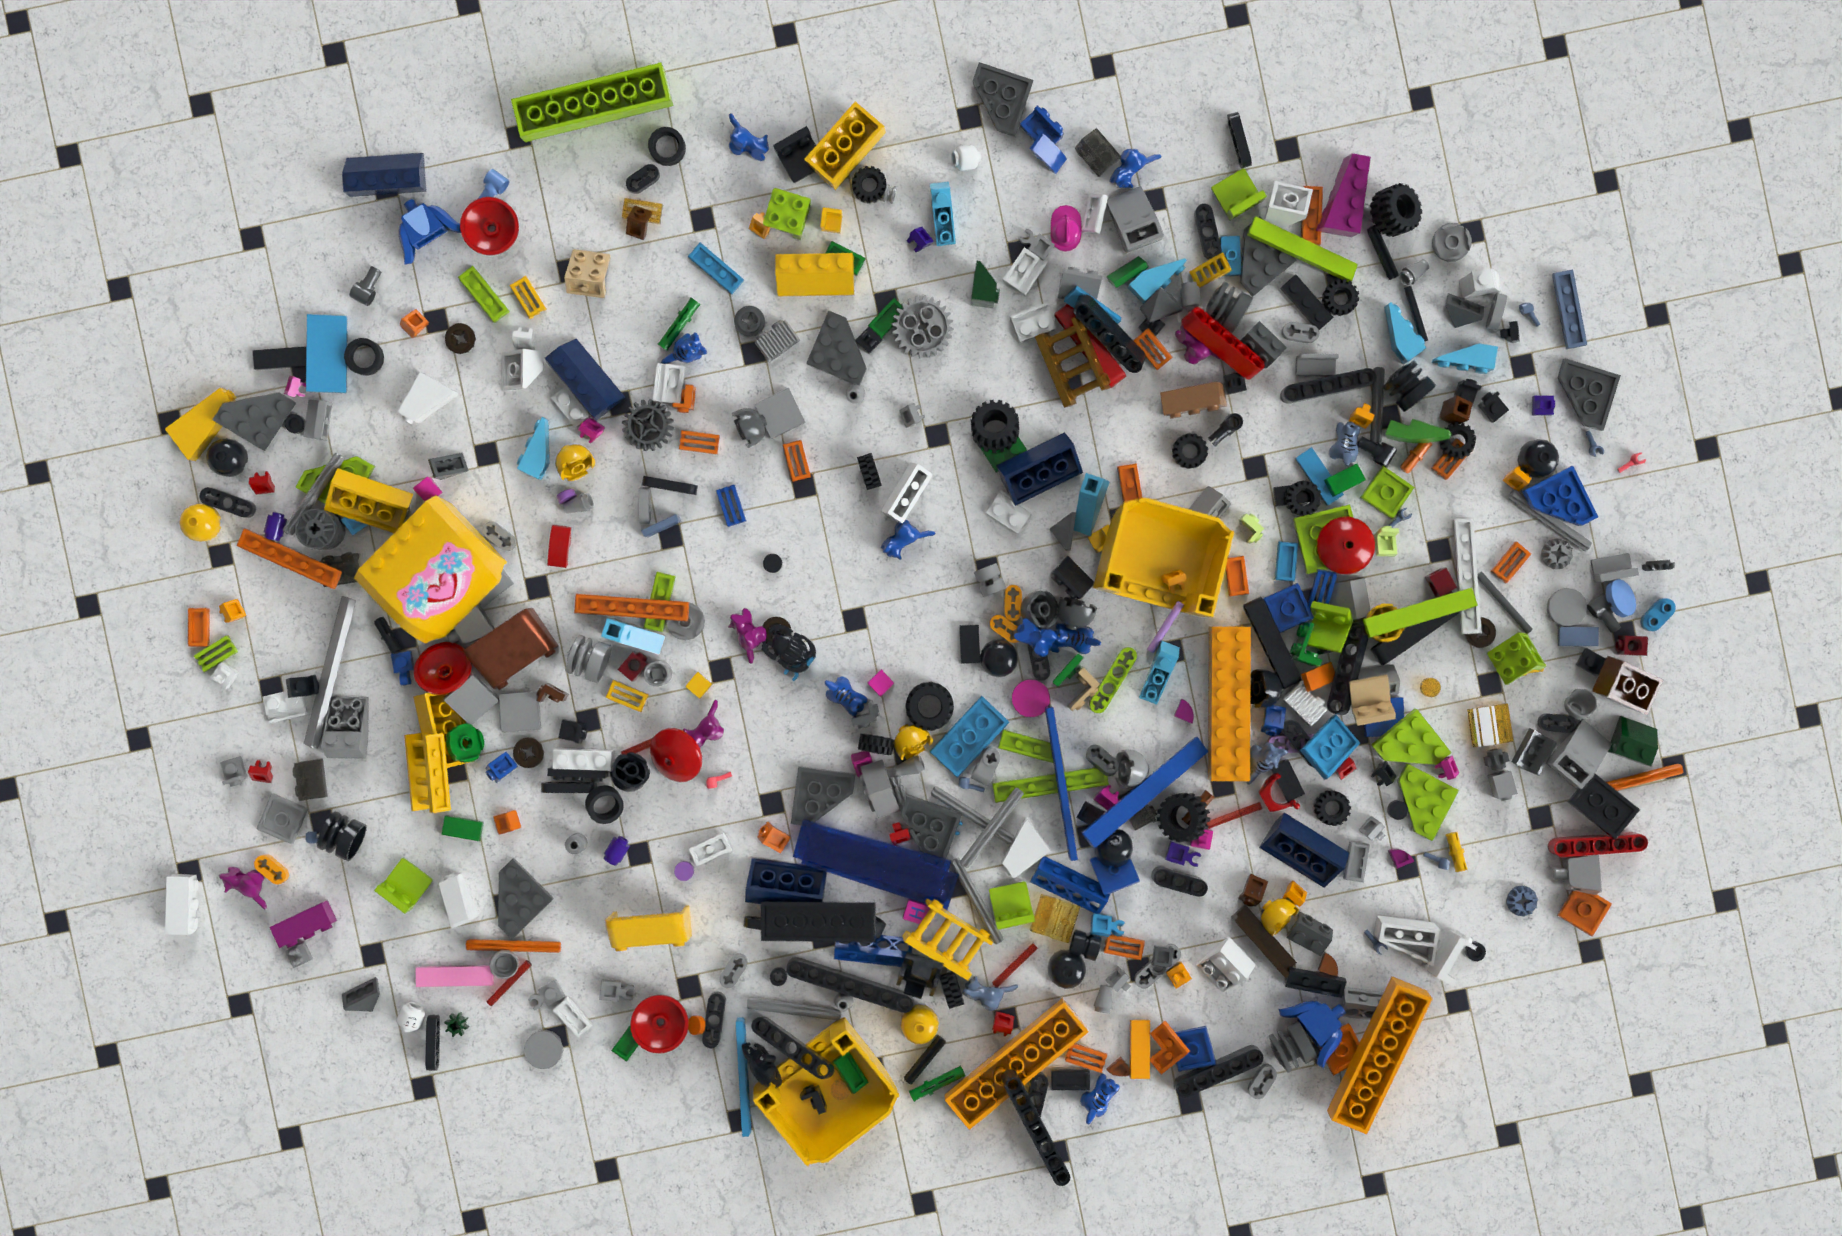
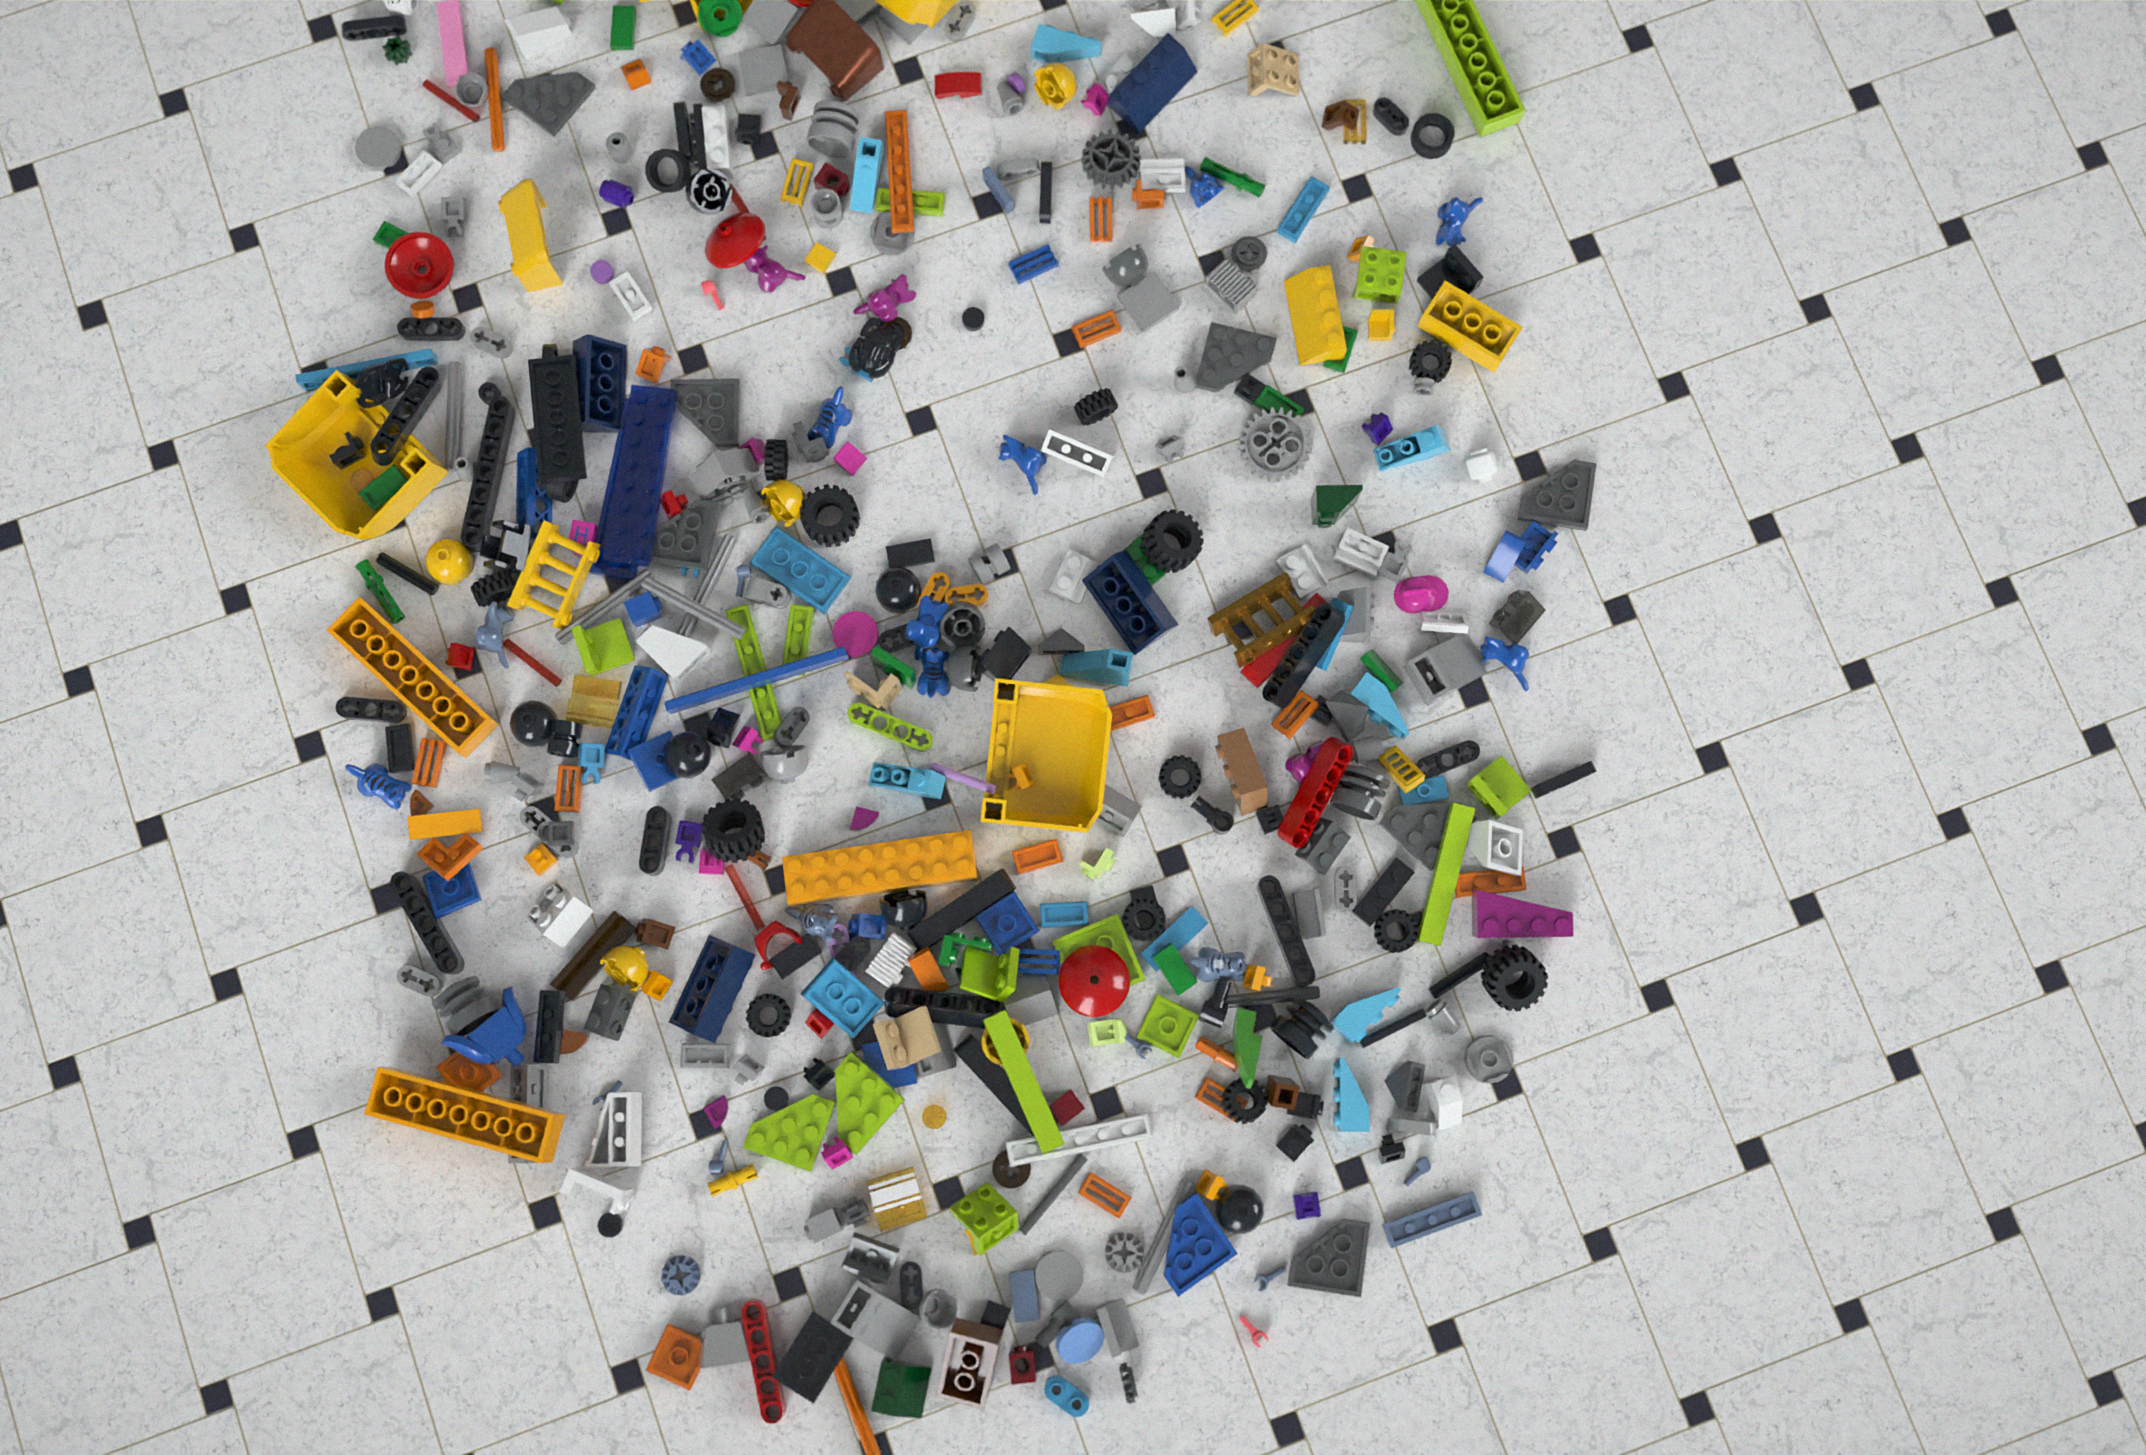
camera: 85 degrees right, 10 degrees down
(985, 869) = (643, 609): none -> blue brick
(1032, 1120) = (345, 706): black beam -> none
(1144, 792) = (758, 779): blue tile -> none

